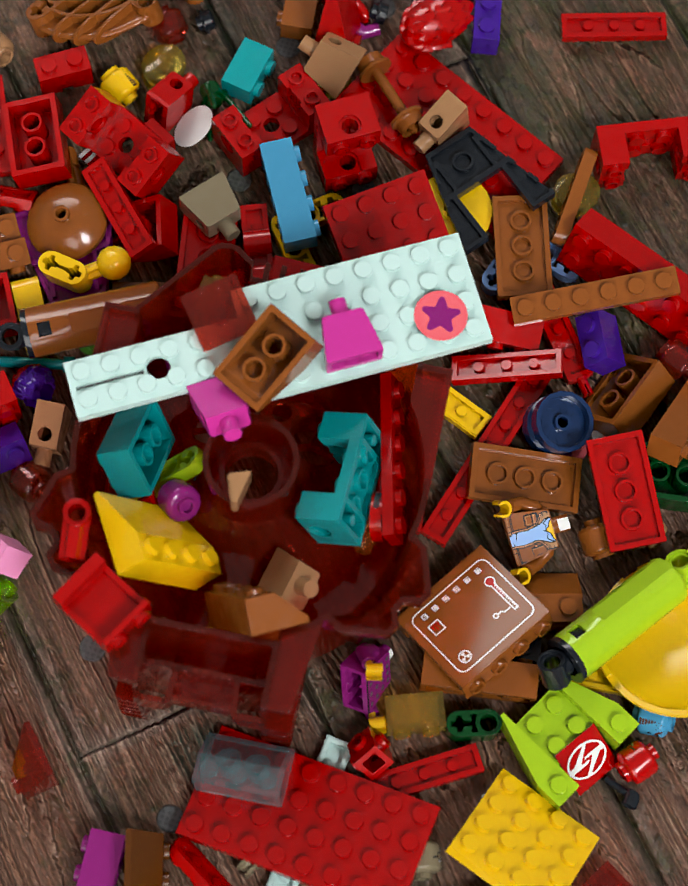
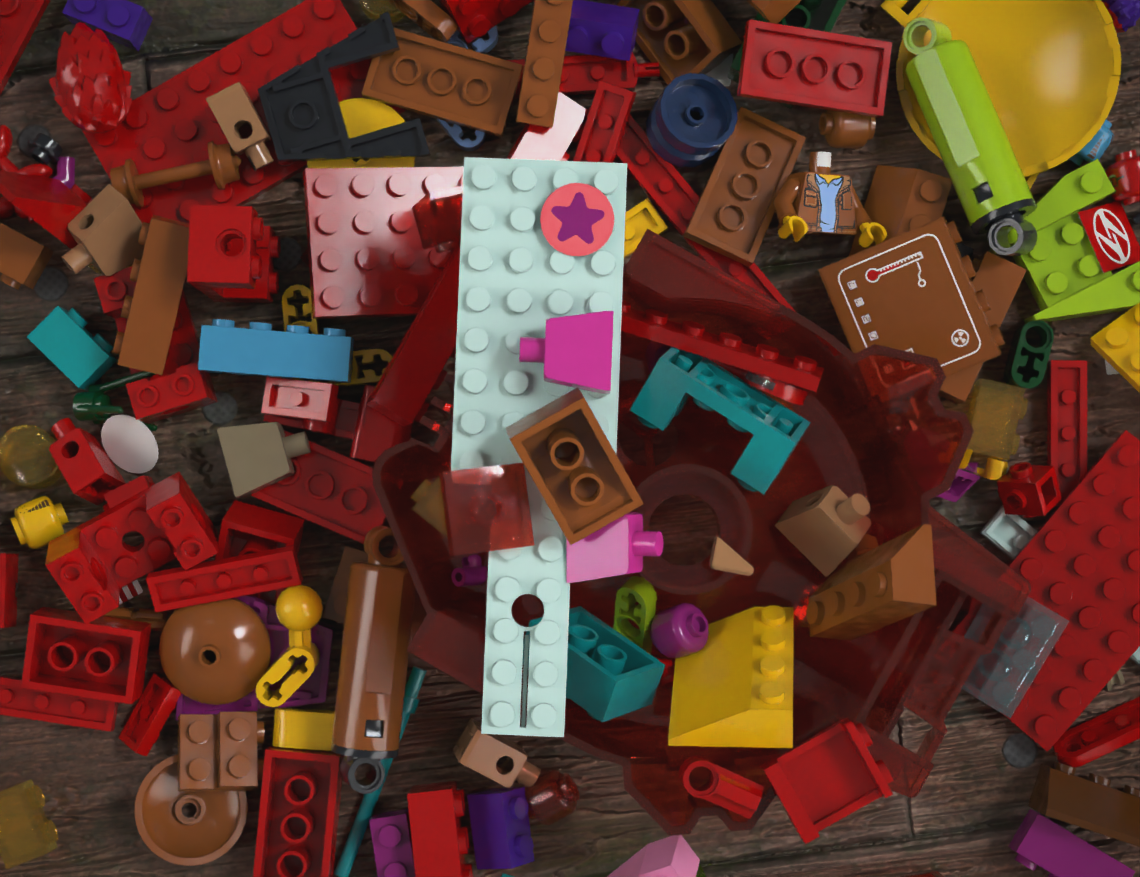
camera: 65 degrees left, 15 degrees up
(33, 383) = (424, 757): dark purple piece -> none
(261, 220) = (299, 399): none -> plate
(294, 101) = (156, 295): none -> dark orange brick

